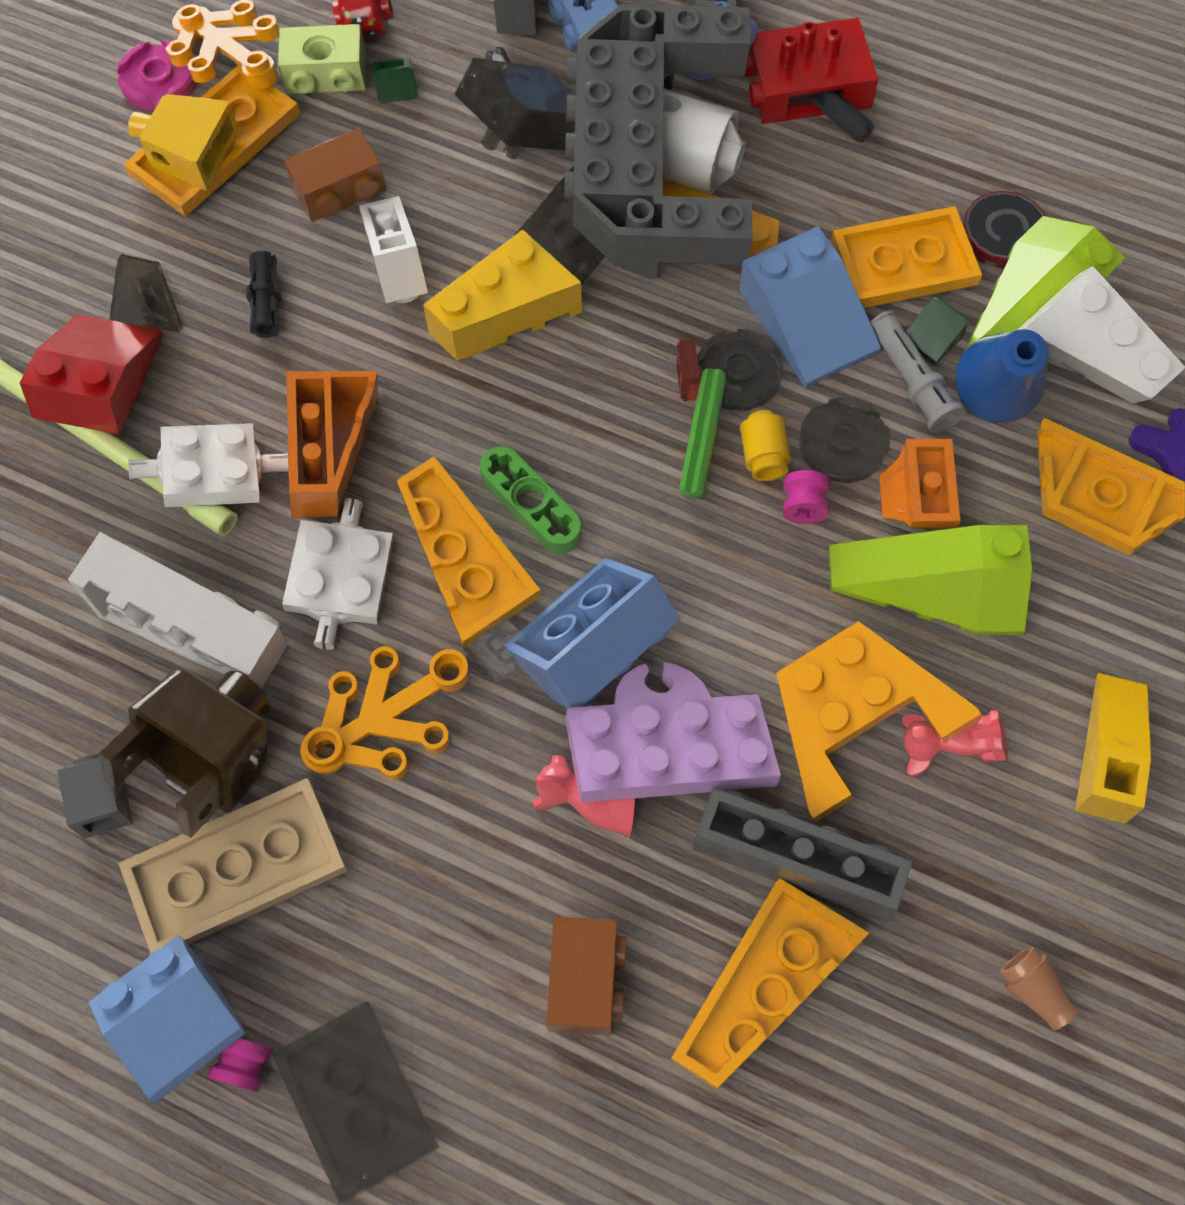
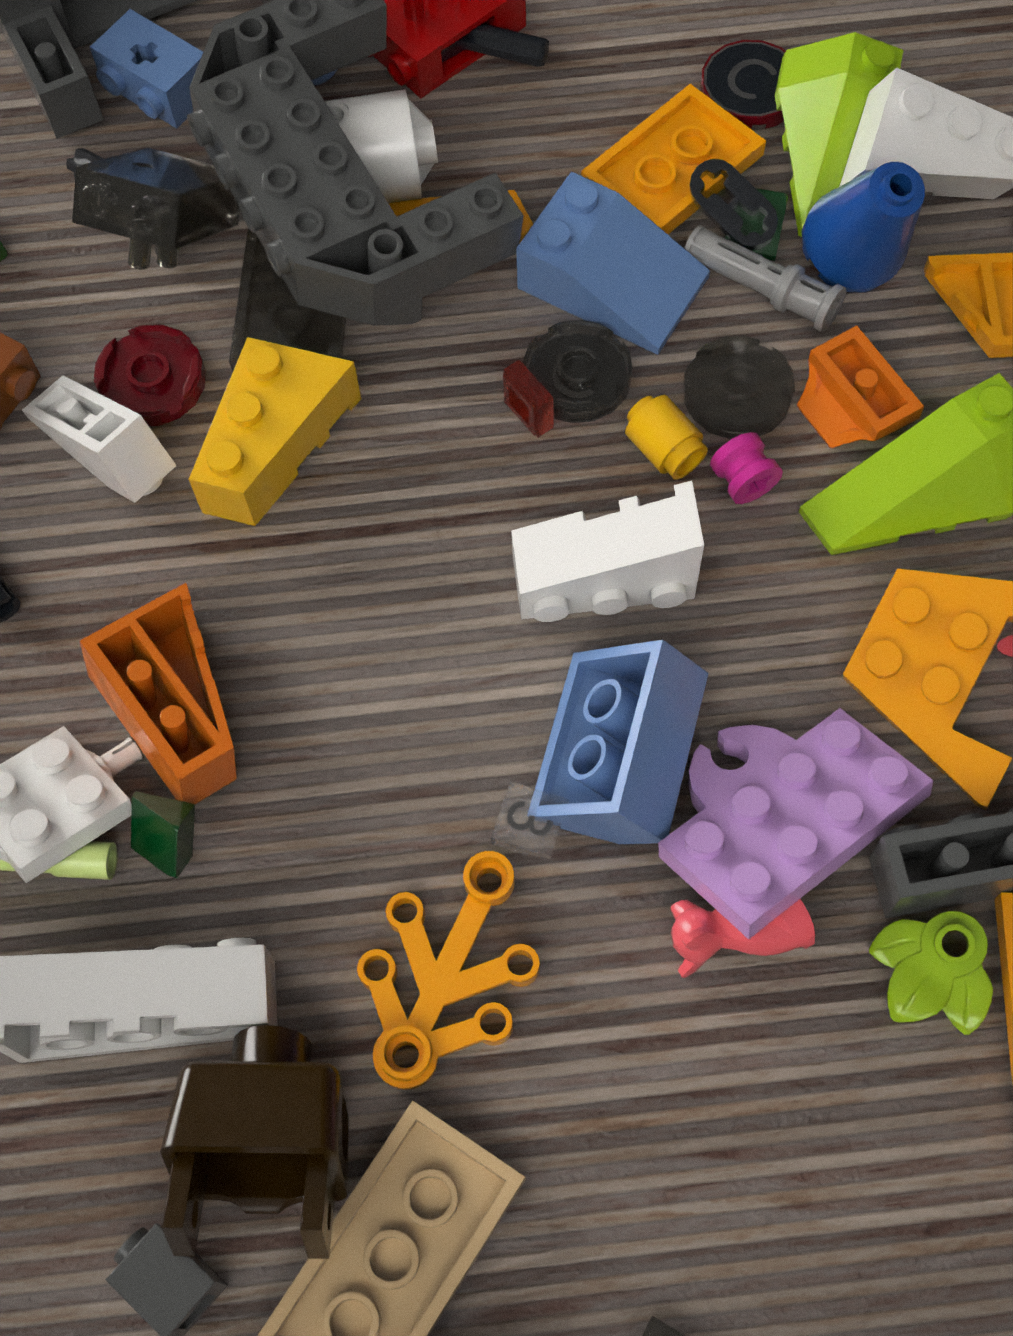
camera: 30 degrees left, 0 degrees up
(269, 524) = (162, 831): none -> dark green slope
(338, 573) = (283, 842): white plate -> none
(453, 225) = (152, 373): none -> dark red tile
(468, 559) = (422, 740): light orange wing -> none
(528, 480) = (434, 613): bright green beam -> none
(583, 976) = (874, 1131): dark orange brick -> none
(665, 507) = (610, 560): none -> white wedge
(694, 905) = (929, 978): none -> lime plate
(703, 433) = (586, 447): bright green axle -> none
(912, 312) = (743, 195): none -> black beam

